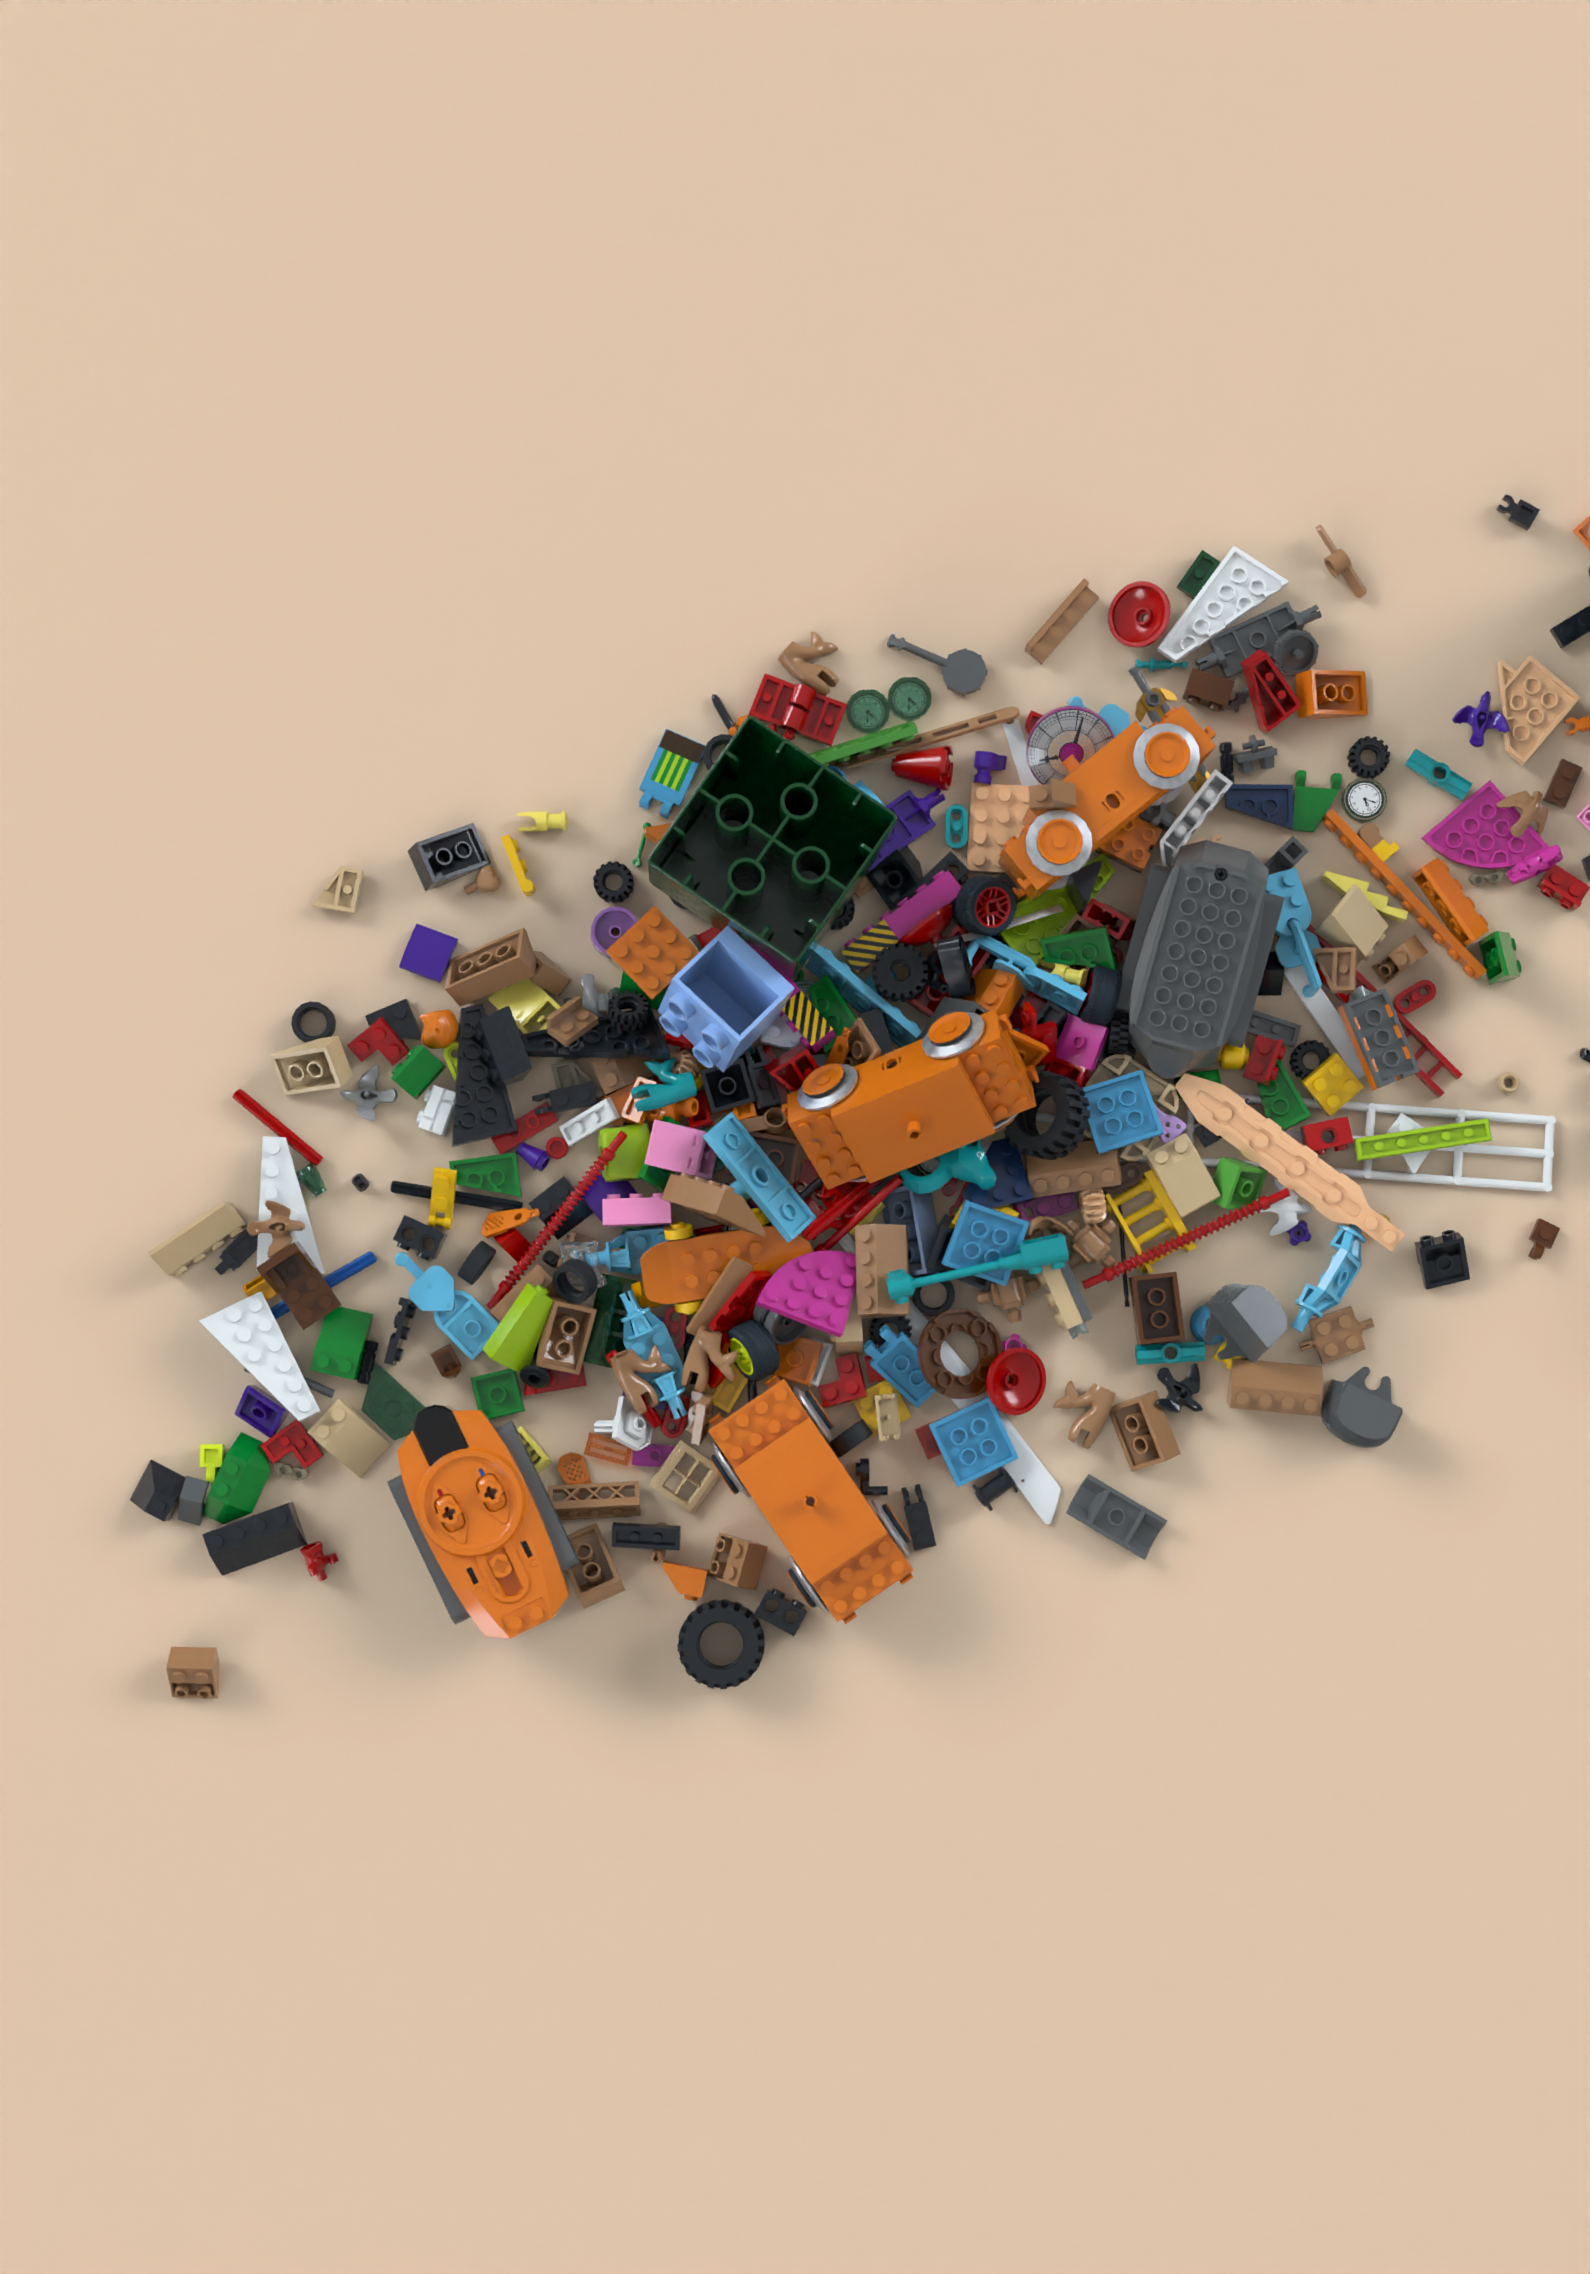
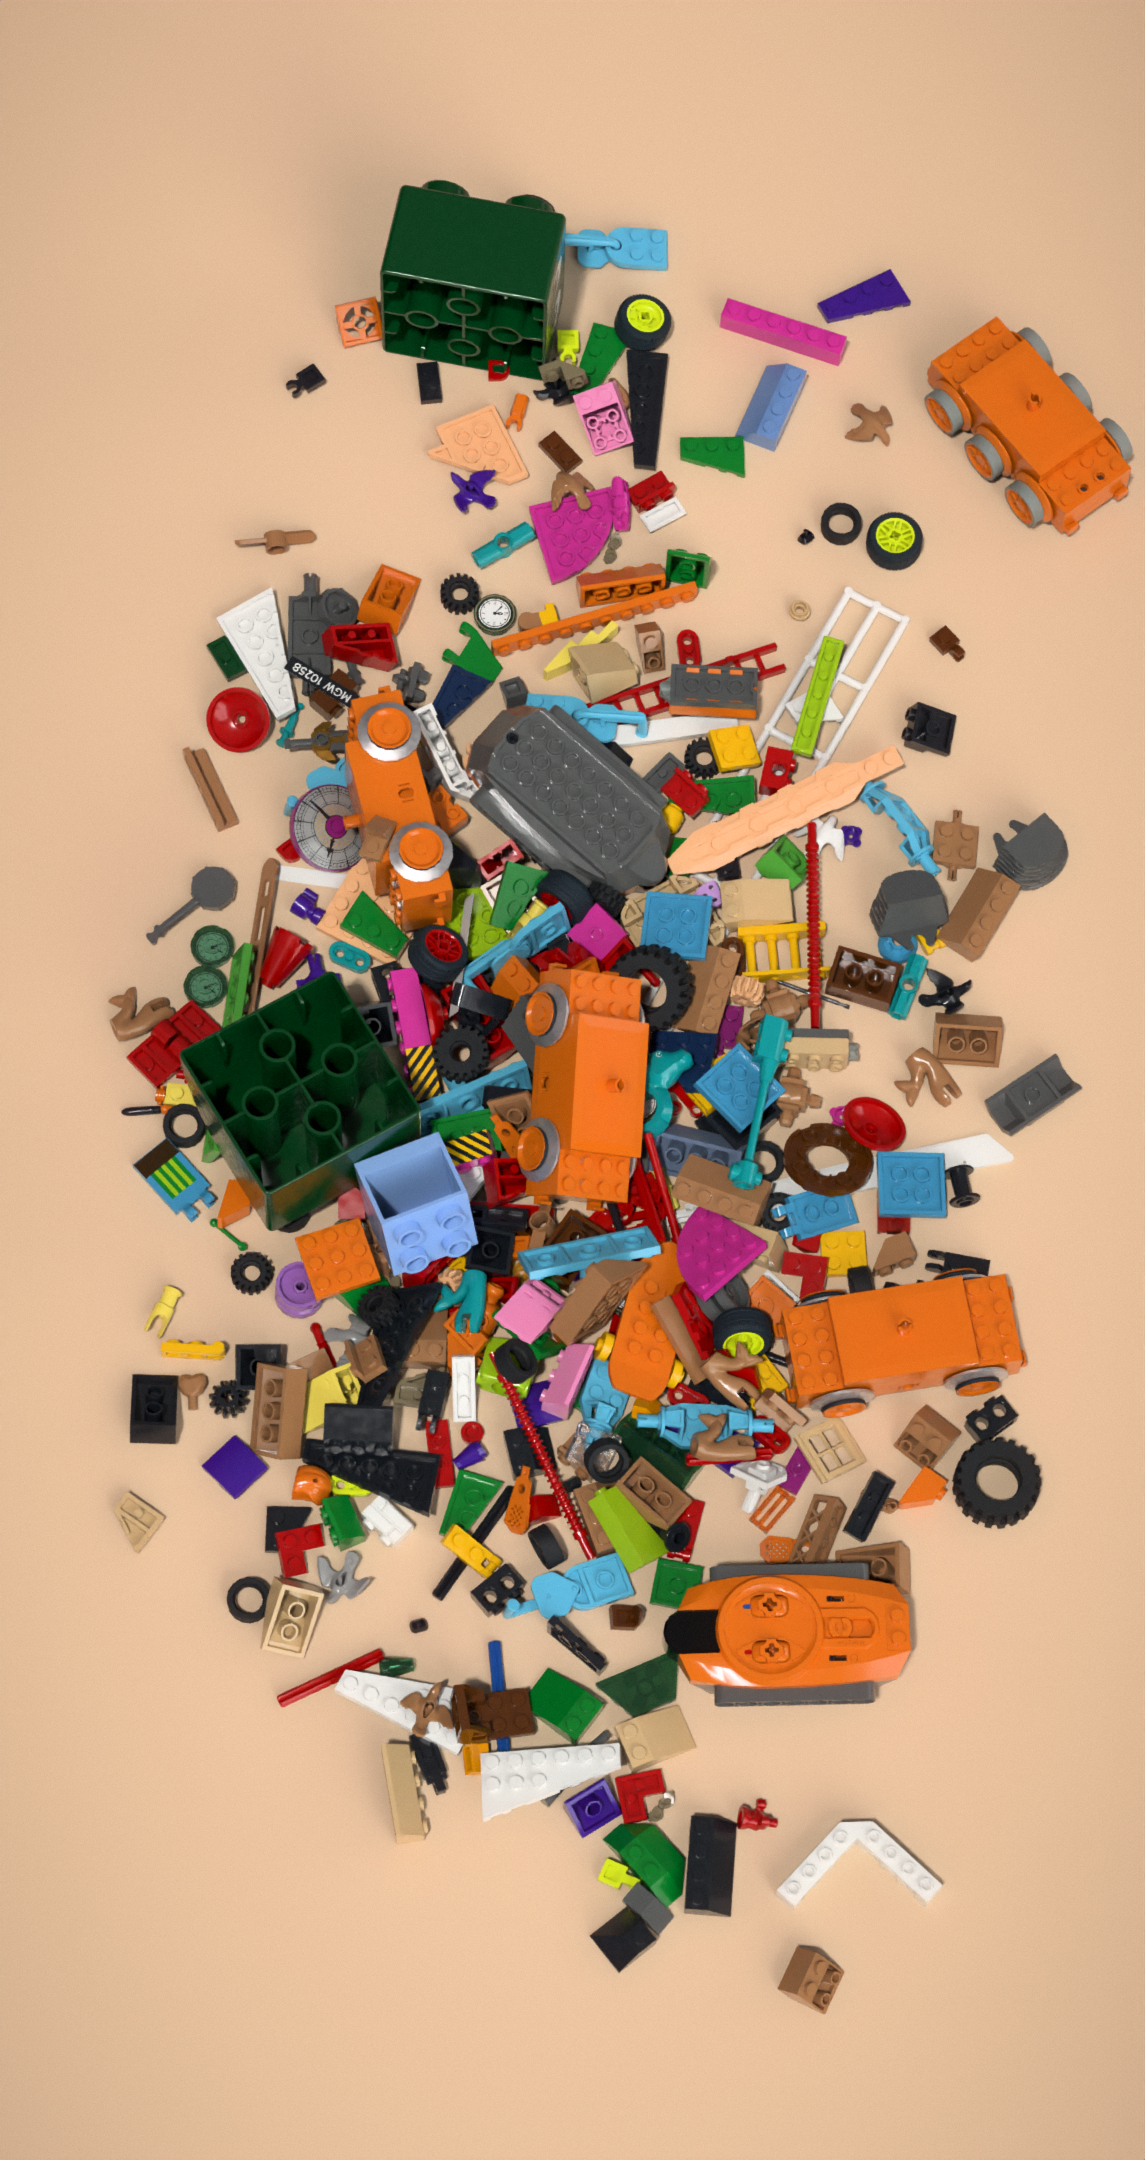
camera: 75 degrees left, 15 degrees down
(323, 1643) = (871, 1840): none -> white brick
(367, 1362) = (579, 1681): black axle -> none
(480, 914) = (234, 1404): none -> black gear
(533, 919) = (246, 1362): none -> black slope
(584, 969) = (315, 1328): none -> red piece
(614, 1148) = (508, 1368): none -> black tyre
(887, 1417) = (855, 1248): tan hinge -> none
(900, 1453) = (895, 1253): none -> medium nougat slope
(994, 829) = (373, 927): none -> green wing
(1213, 672) = (320, 681): none -> black sticker
(1338, 967) = (635, 694): medium nougat wing -> none
(1545, 909) = (663, 514): none -> white tile

